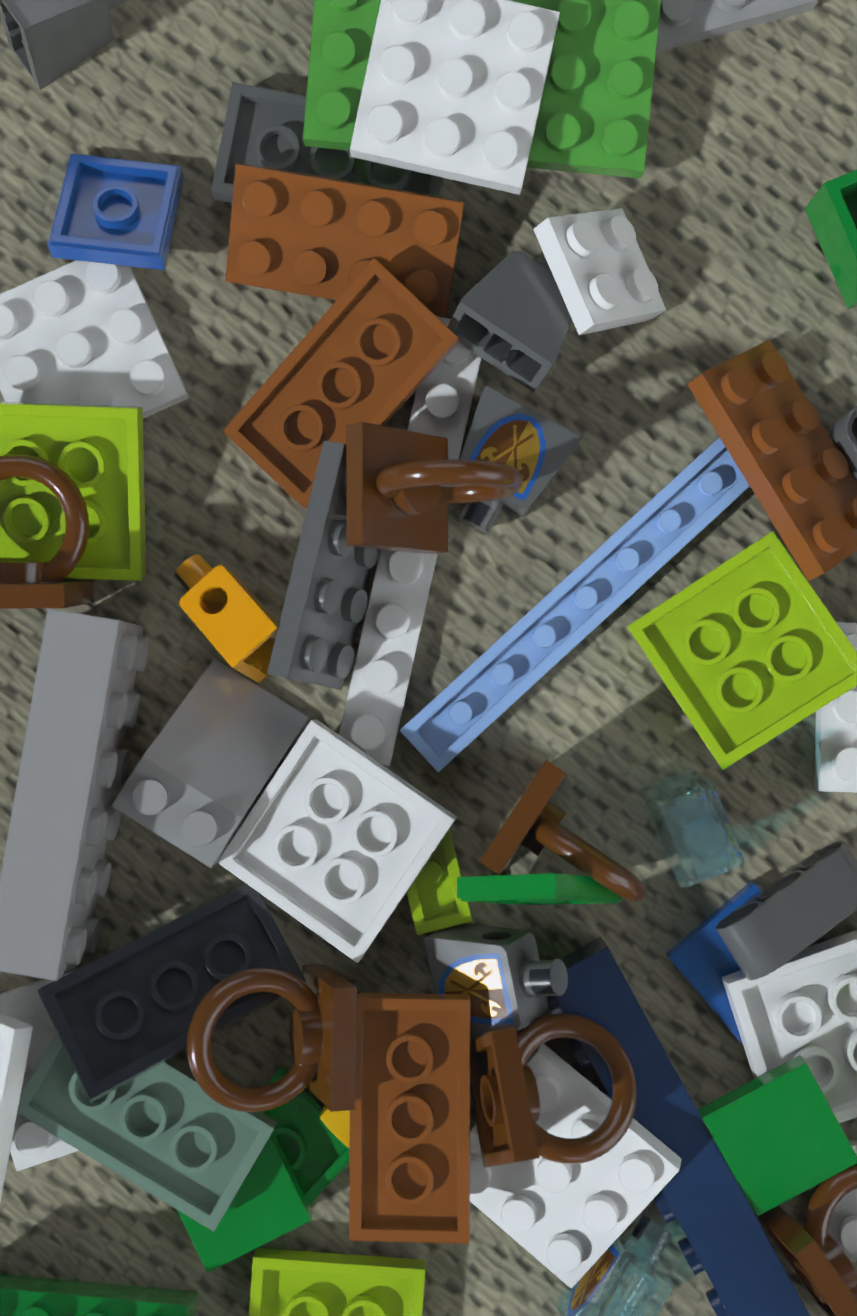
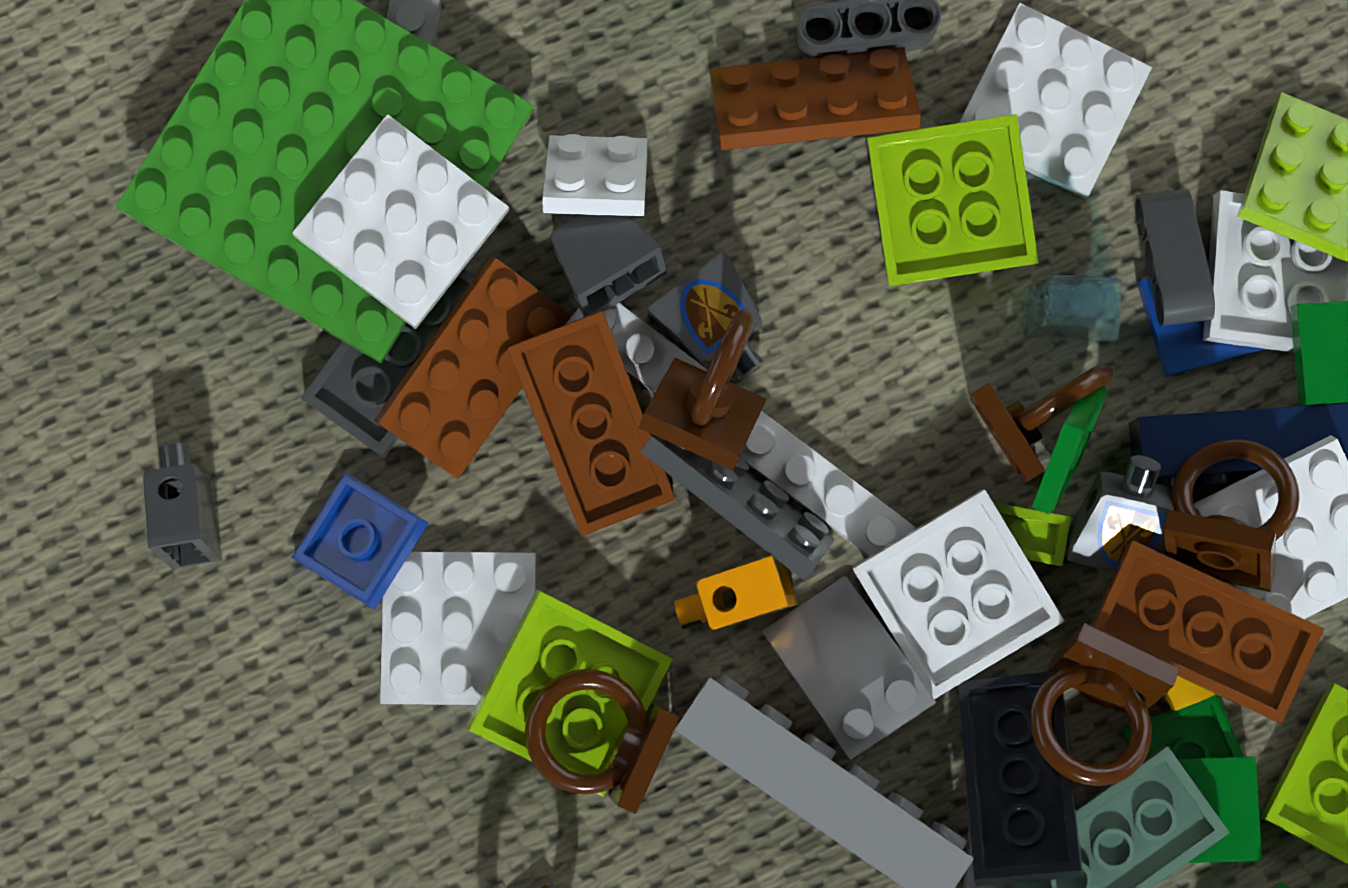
camera: 65 degrees left, 5 degrees down
(576, 606) = (854, 320): light blue plate -> none

